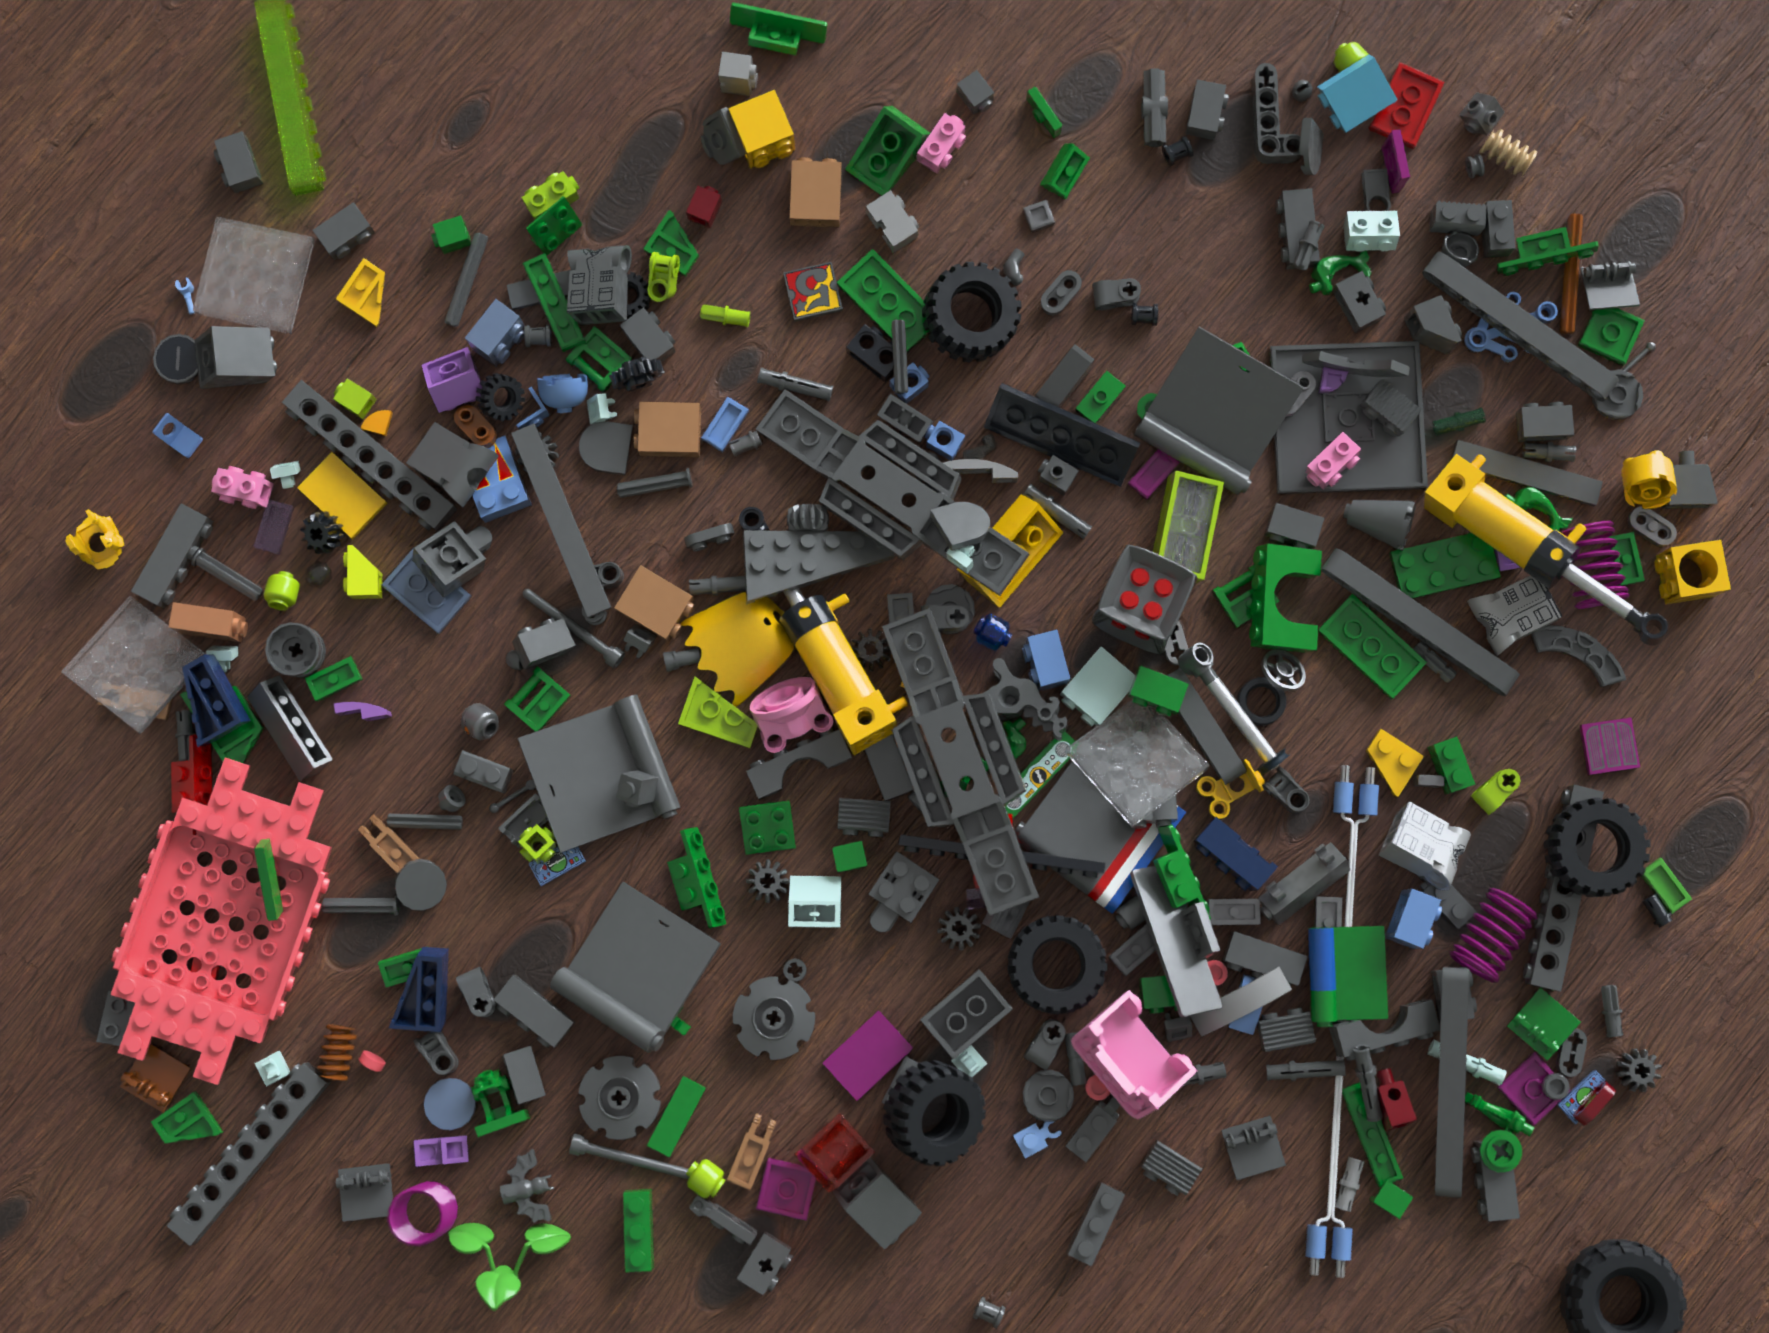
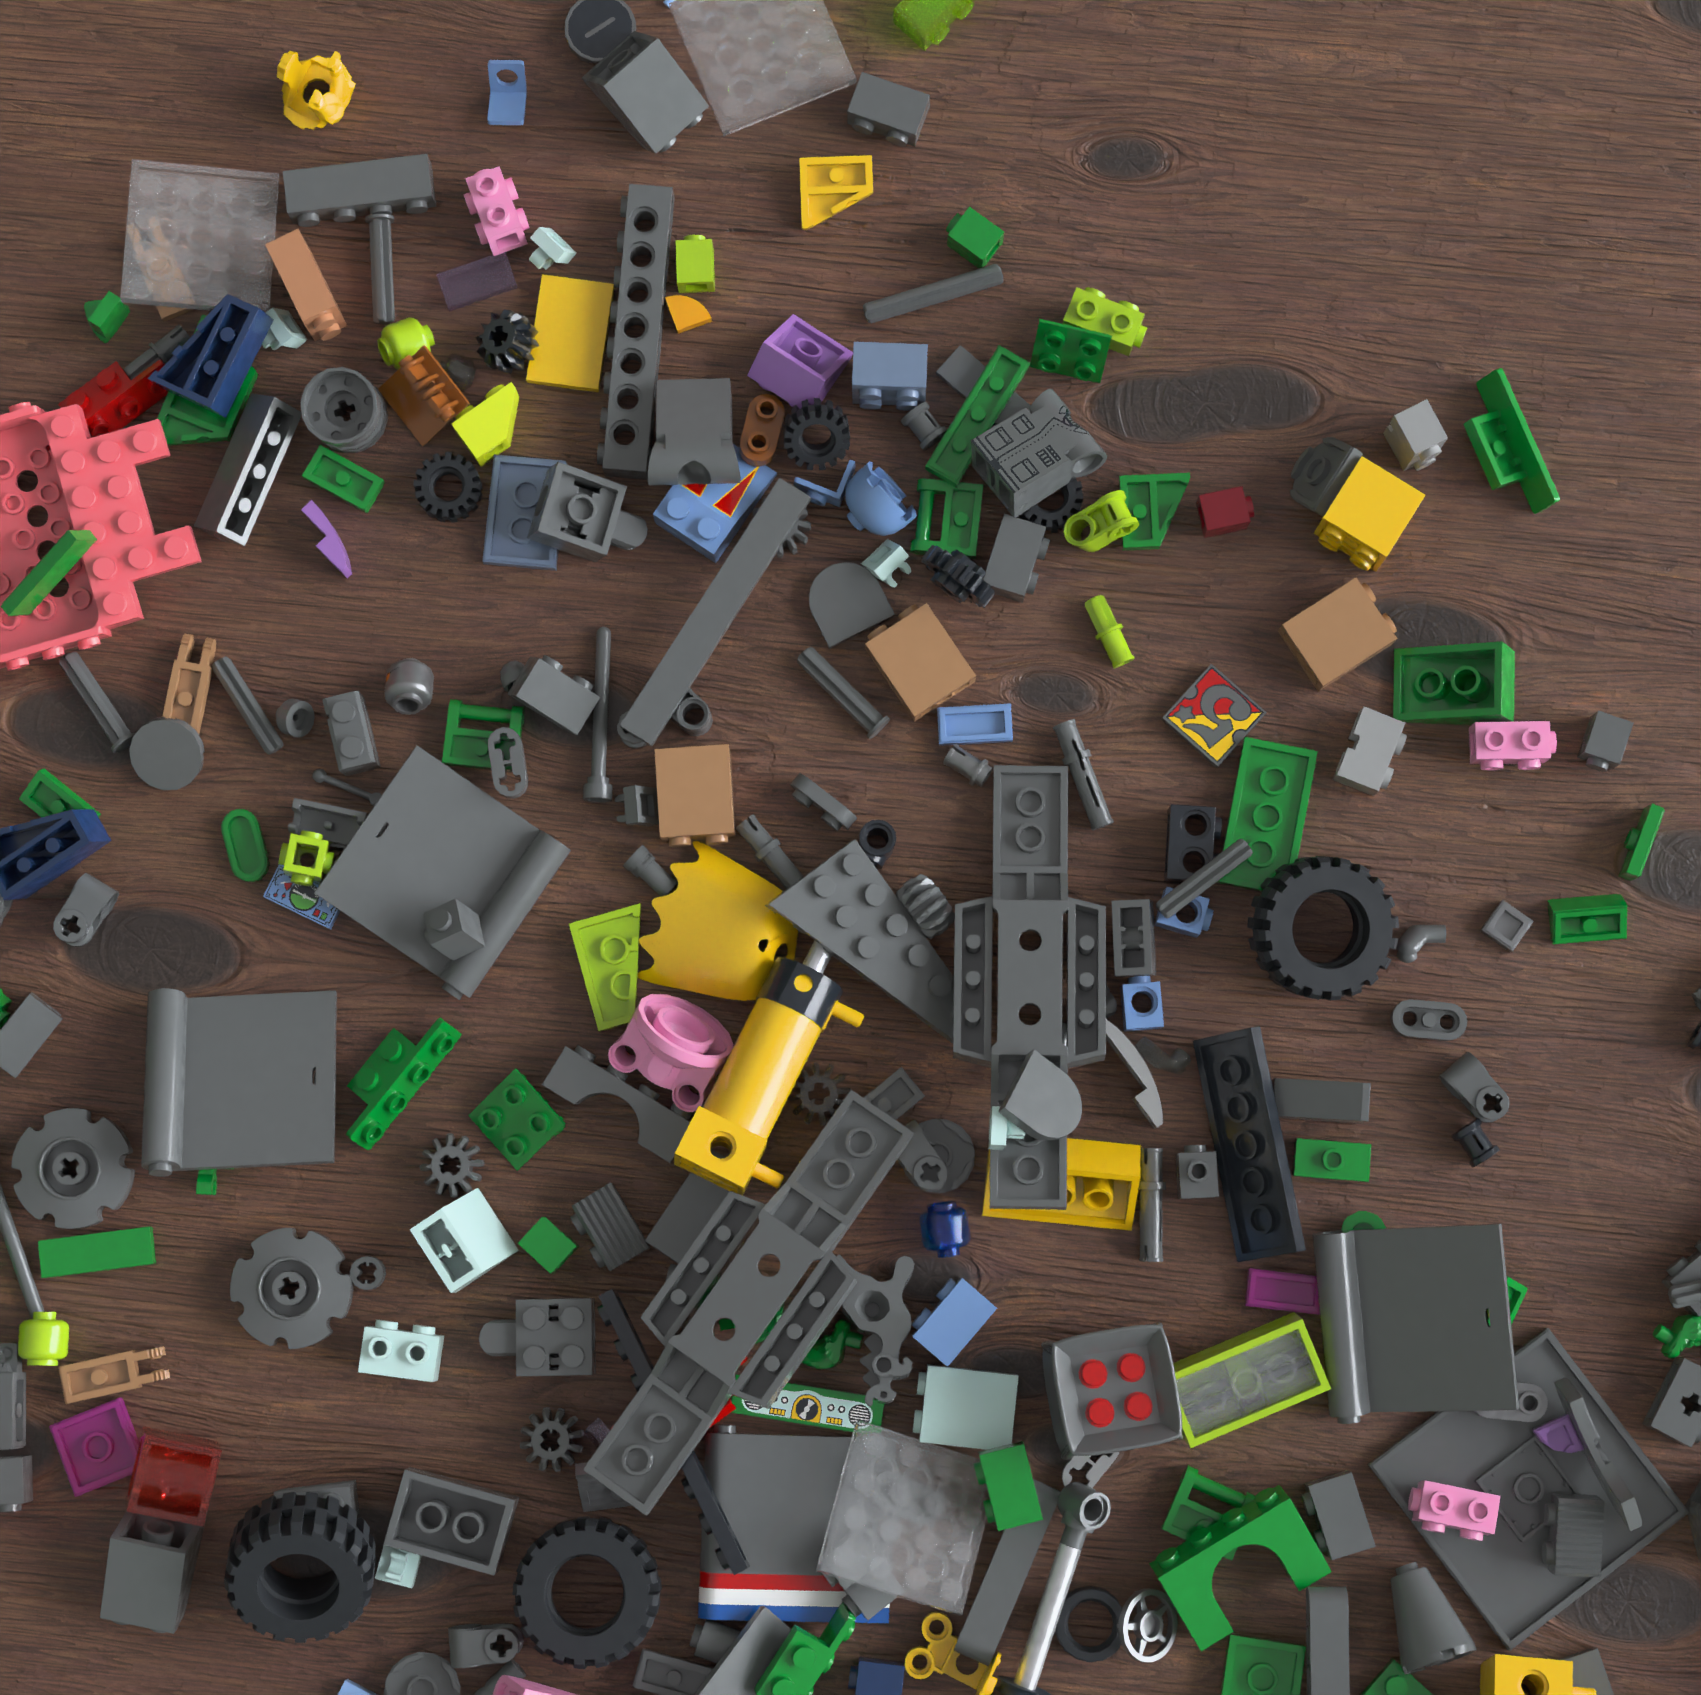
camera: 60 degrees right, 0 degrees up
(140, 750) = (106, 315): none -> green tile
(319, 600) = (423, 395): none -> dark orange hinge
(370, 612) = (442, 466): none -> black tyre
(504, 876) = (245, 845): none -> green tile
(533, 1012) = (106, 994): dark grey brick -> none
(560, 700) = (499, 764): none -> dark grey beam
(852, 980) = (401, 1352): none -> light aqua brick
(867, 1055) = (324, 1433): magenta tile -> none
(1458, 421) = (1621, 1634): clear green pin -> none

